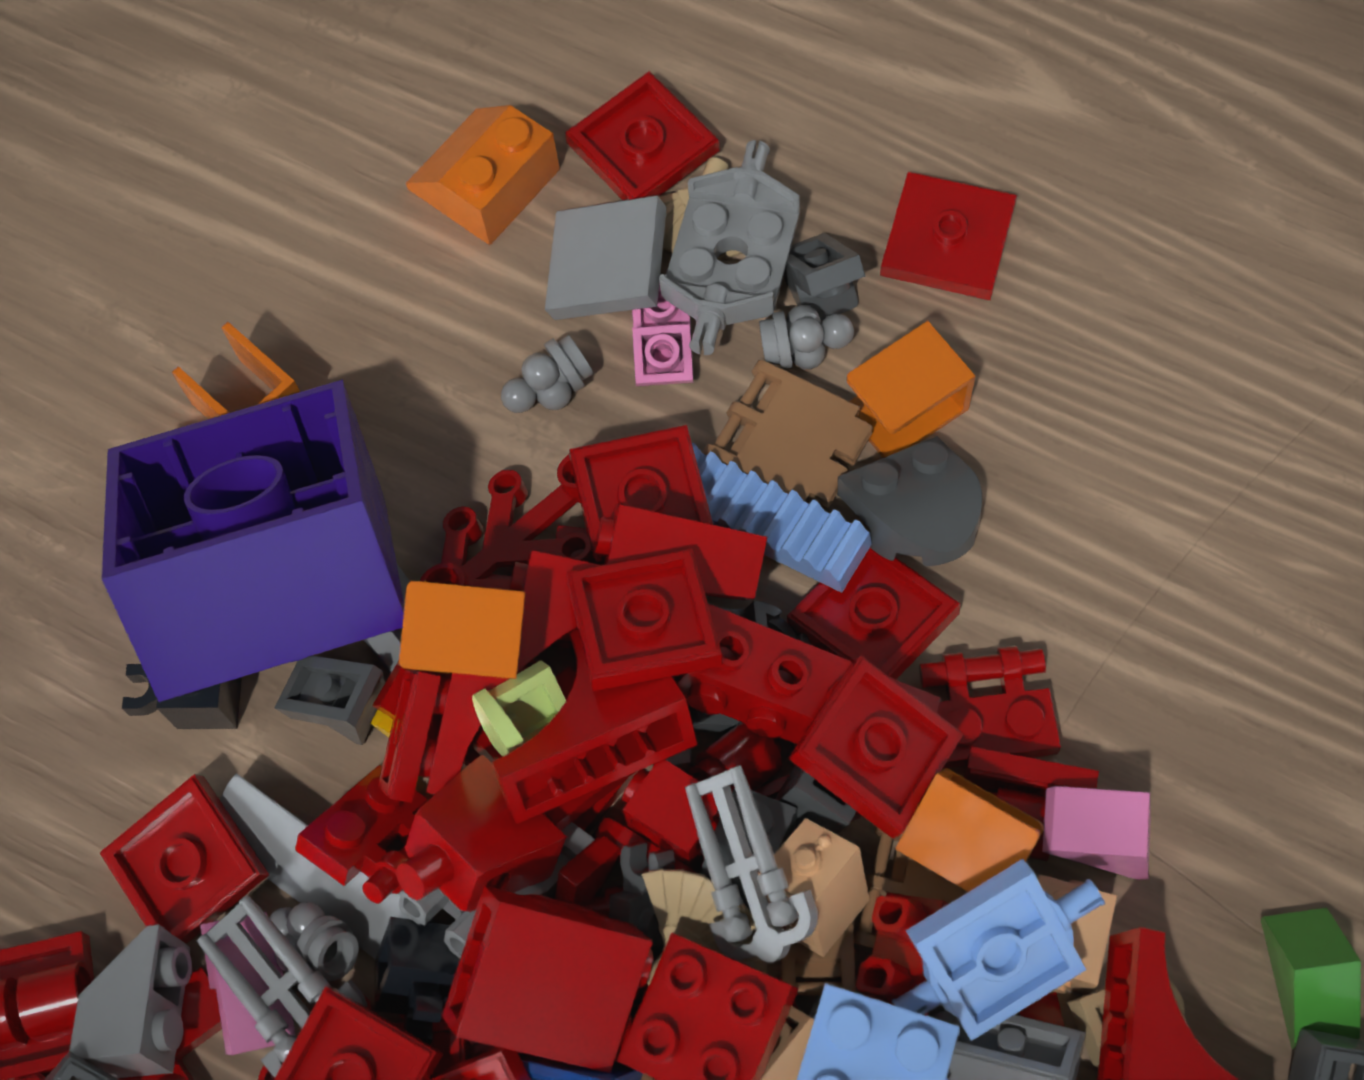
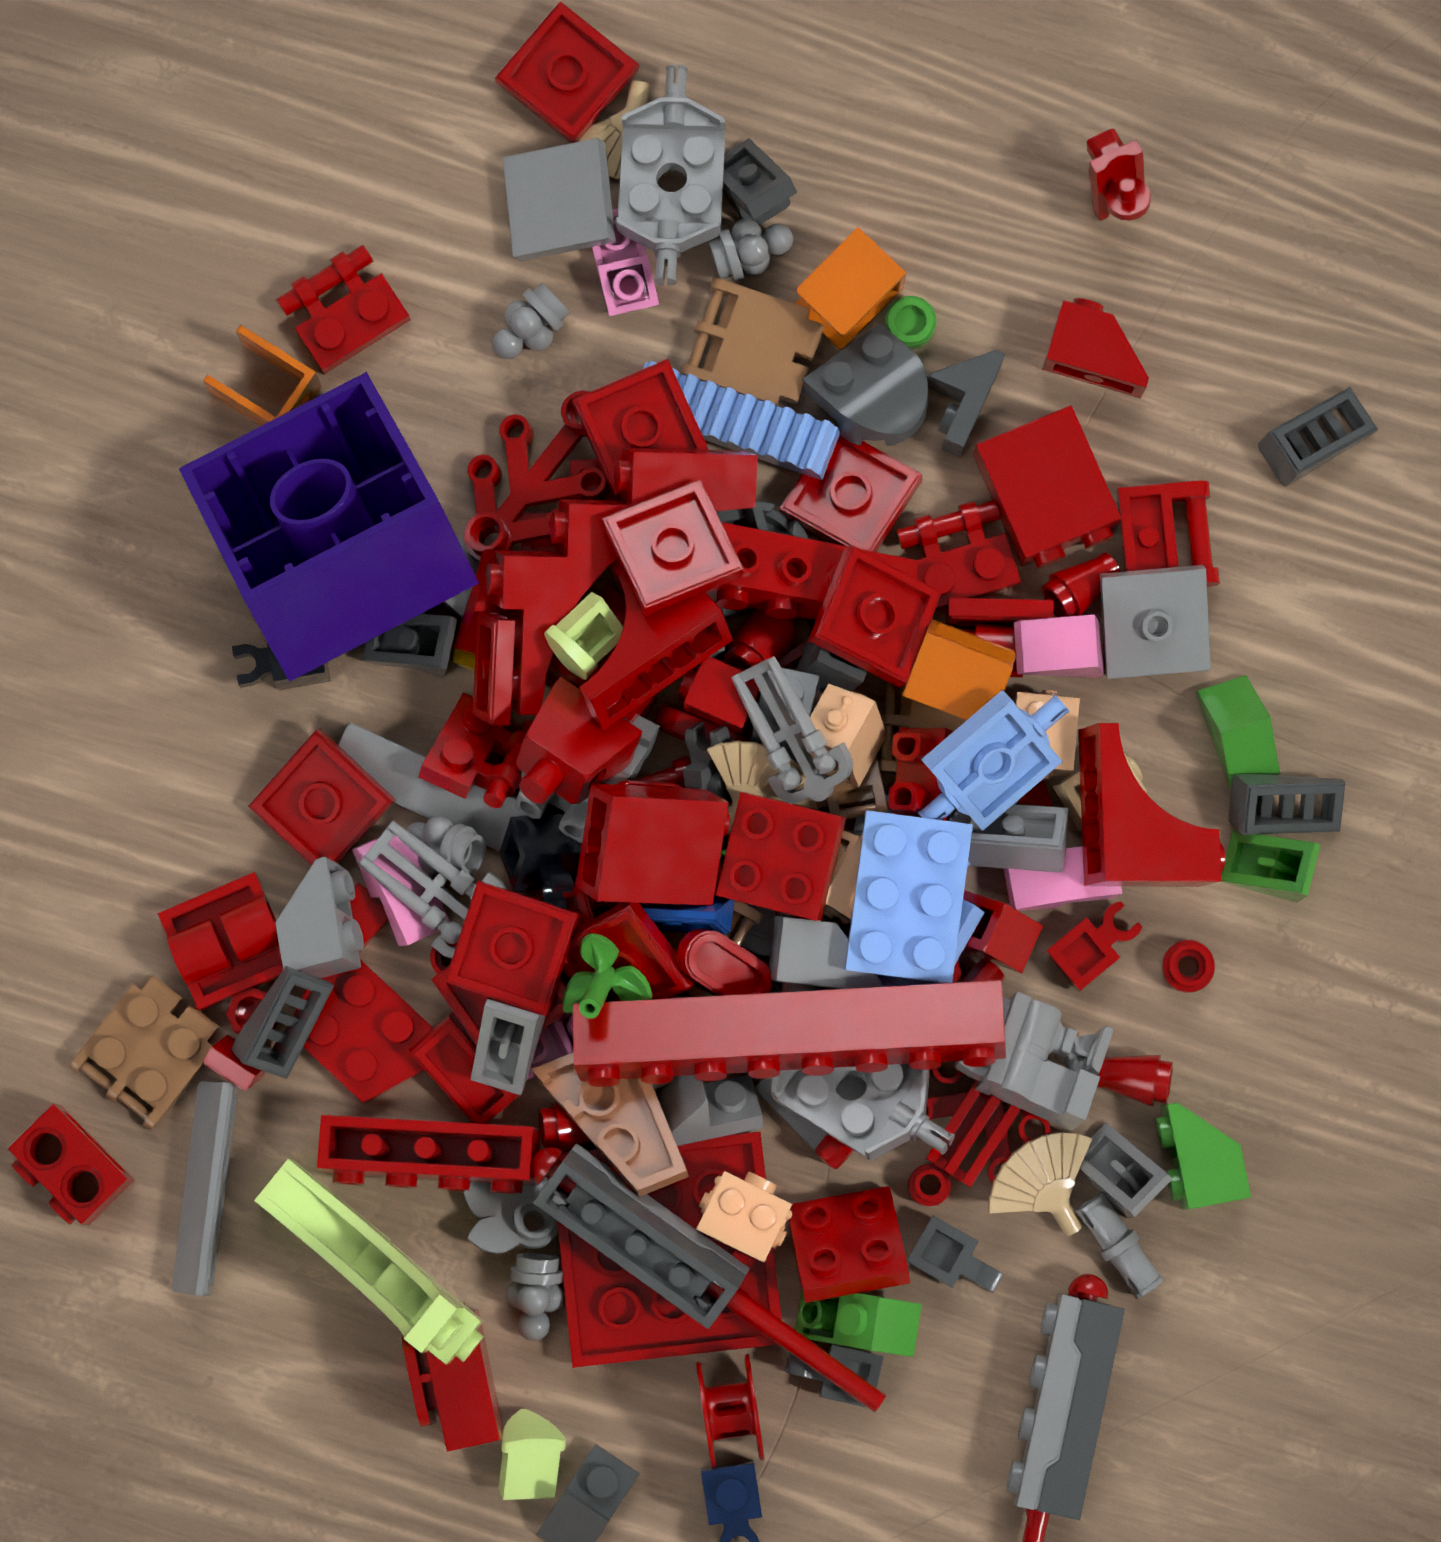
camera: 20 degrees left, 15 degrees up
(359, 350) = (351, 322): none -> red plate
(461, 629) = (530, 584): orange piece -> none
(488, 170) = (426, 124): orange slope -> none
(587, 872) = (658, 753): red tile -> none
(948, 235) = (861, 124): red plate -> none
(974, 440) = (911, 321): none -> bright green tile
(1027, 519) = (969, 384): none -> dark grey slope
(1107, 644) = (1047, 488): none -> red brick
(1134, 761) = (1078, 585): none -> red cone
(1182, 501) = (1094, 349): none -> red slope
(1221, 821) = (1155, 621): none -> light grey plate
(1225, 724) = (1149, 527): none -> red plate
(1230, 315) = (1117, 177): none -> red hips

